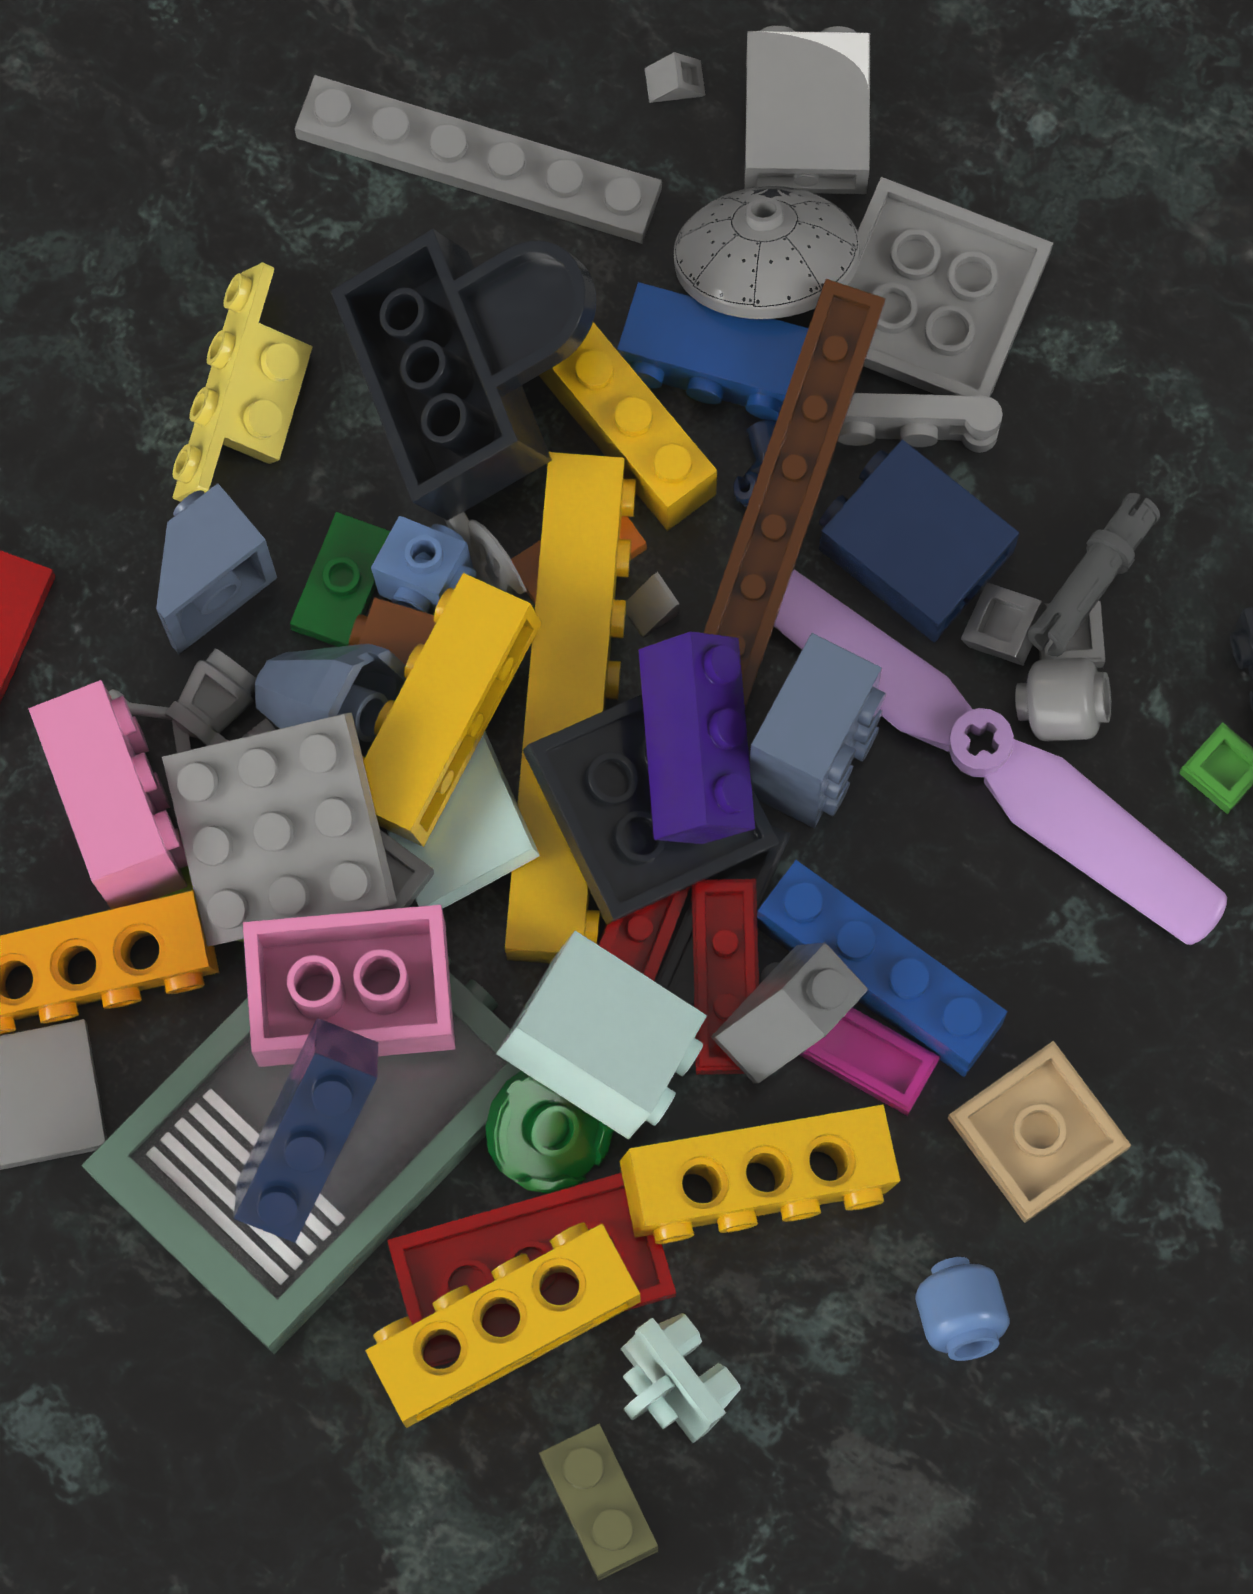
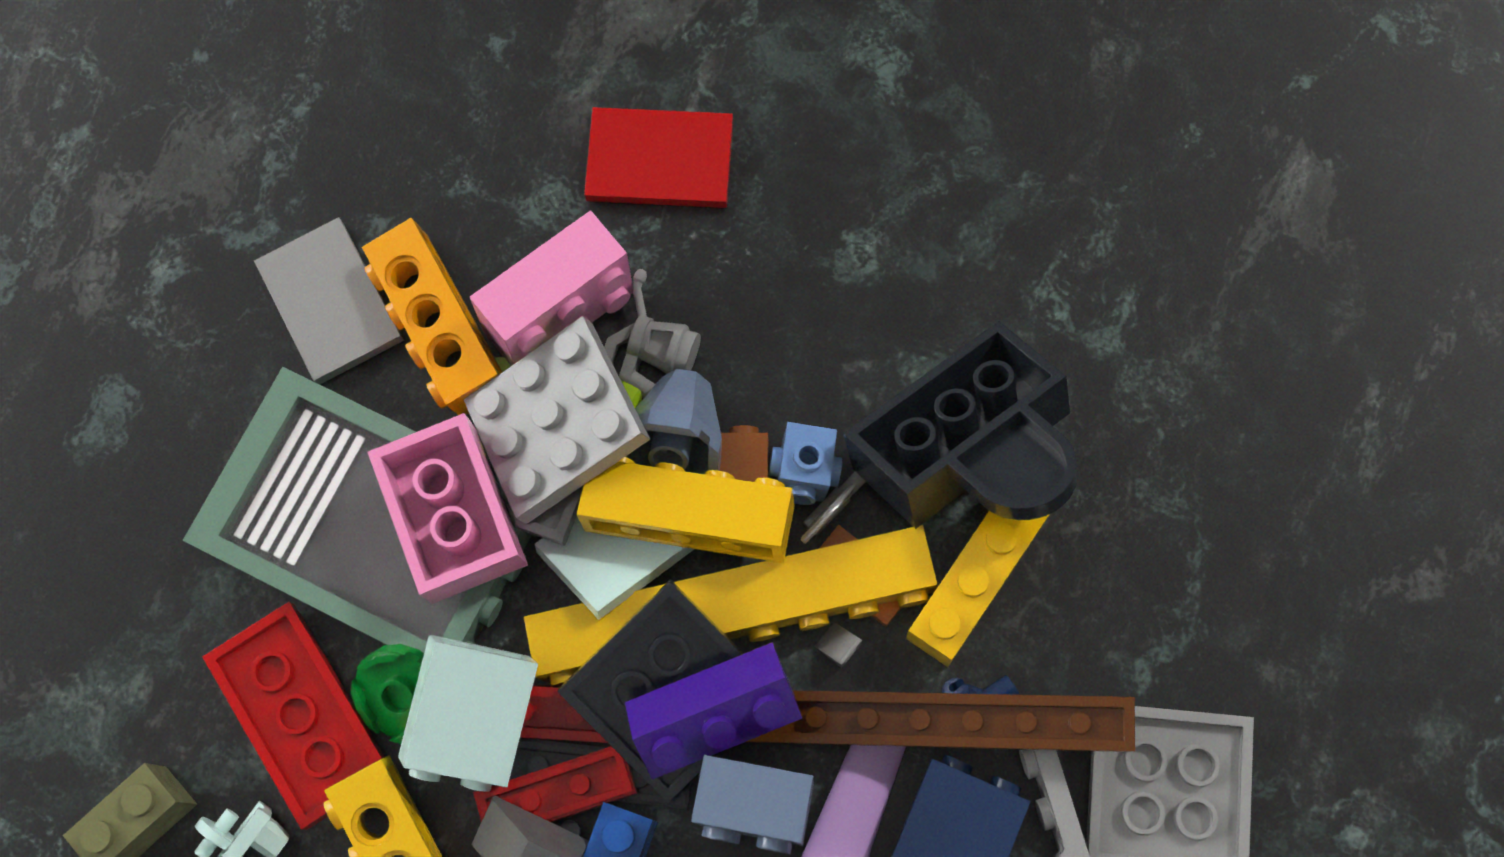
camera: 80 degrees right, 0 degrees up
(209, 566) = (753, 303): sand blue slope -> none
(248, 389) = (909, 293): light yellow bracket -> none
(306, 1130) = (322, 511): dark blue brick -> none
(339, 581) = (775, 404): green plate -> none
(424, 1390) = (174, 660): yellow brick -> none
(478, 159) = (1156, 402): light grey plate -> none
(674, 78) = (1280, 529): light grey piece -> none
(710, 353) = (1057, 624): blue brick -> none
(765, 252) = (1152, 644): light grey dish -> none
(808, 110) = (1289, 639): light grey panel -> none

